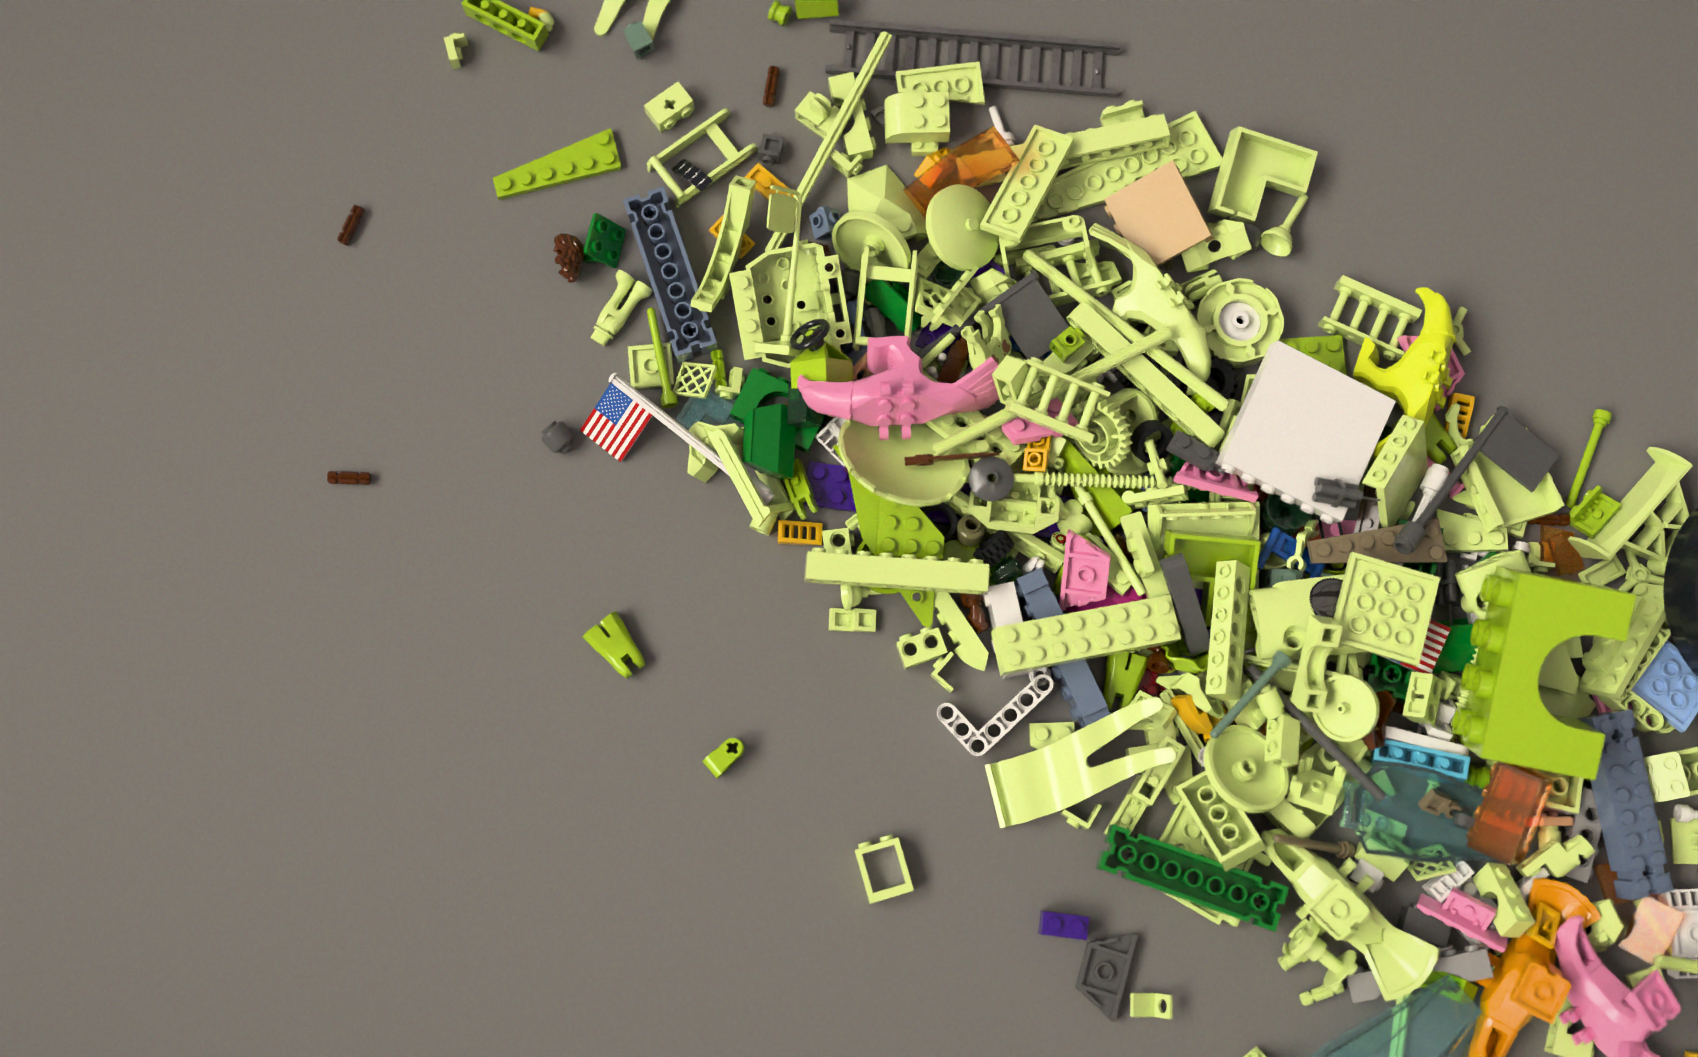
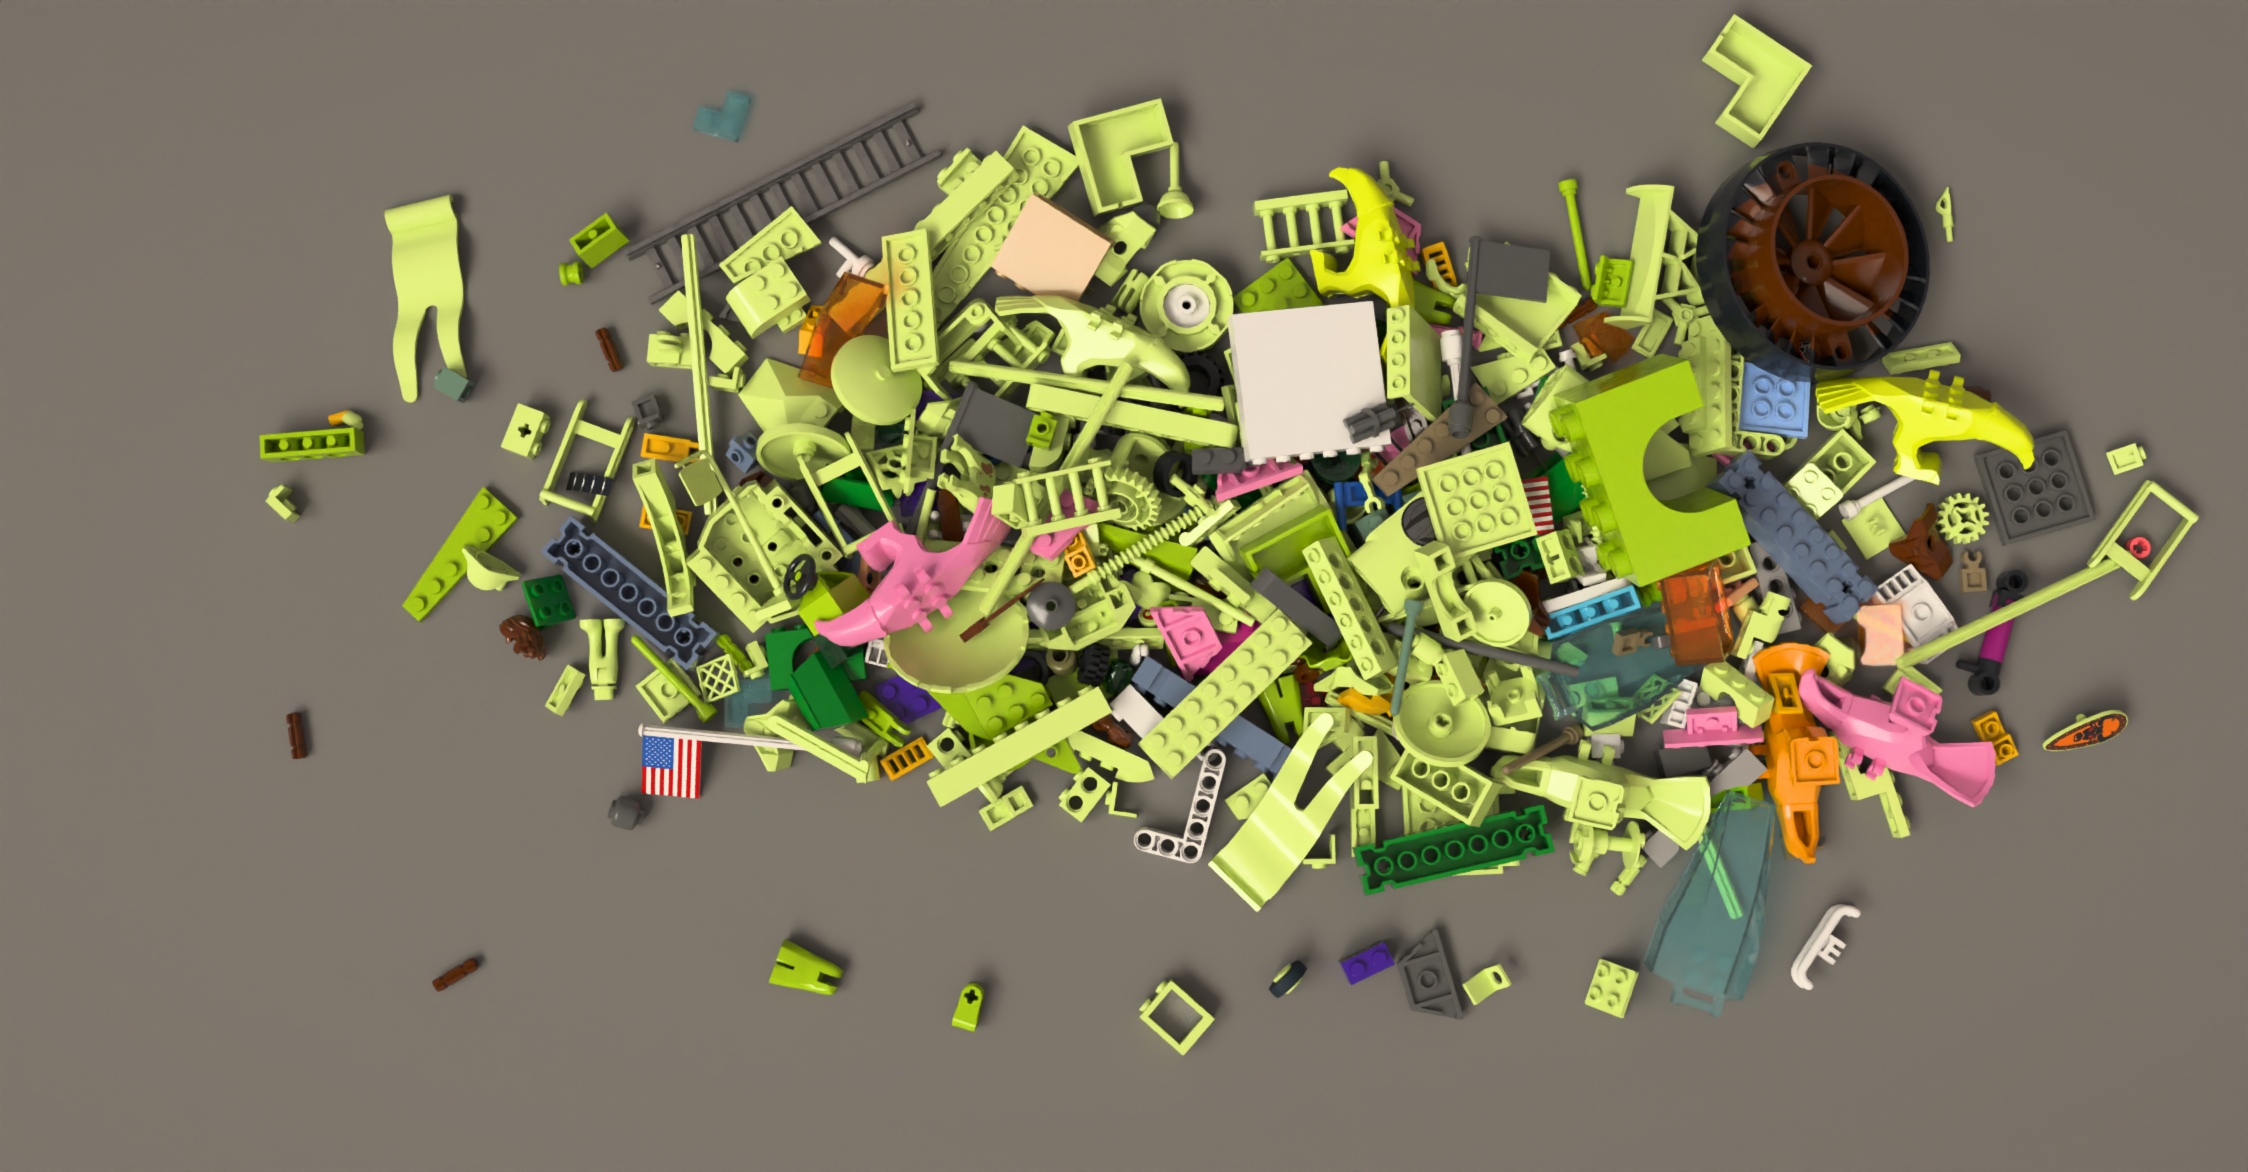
camera: 30 degrees left, 5 degrees up
(567, 319) = (564, 691): none -> yellowish green plate
(572, 190) = (487, 570): none -> yellowish green hat
(992, 896) = (1287, 978): none -> black wheel

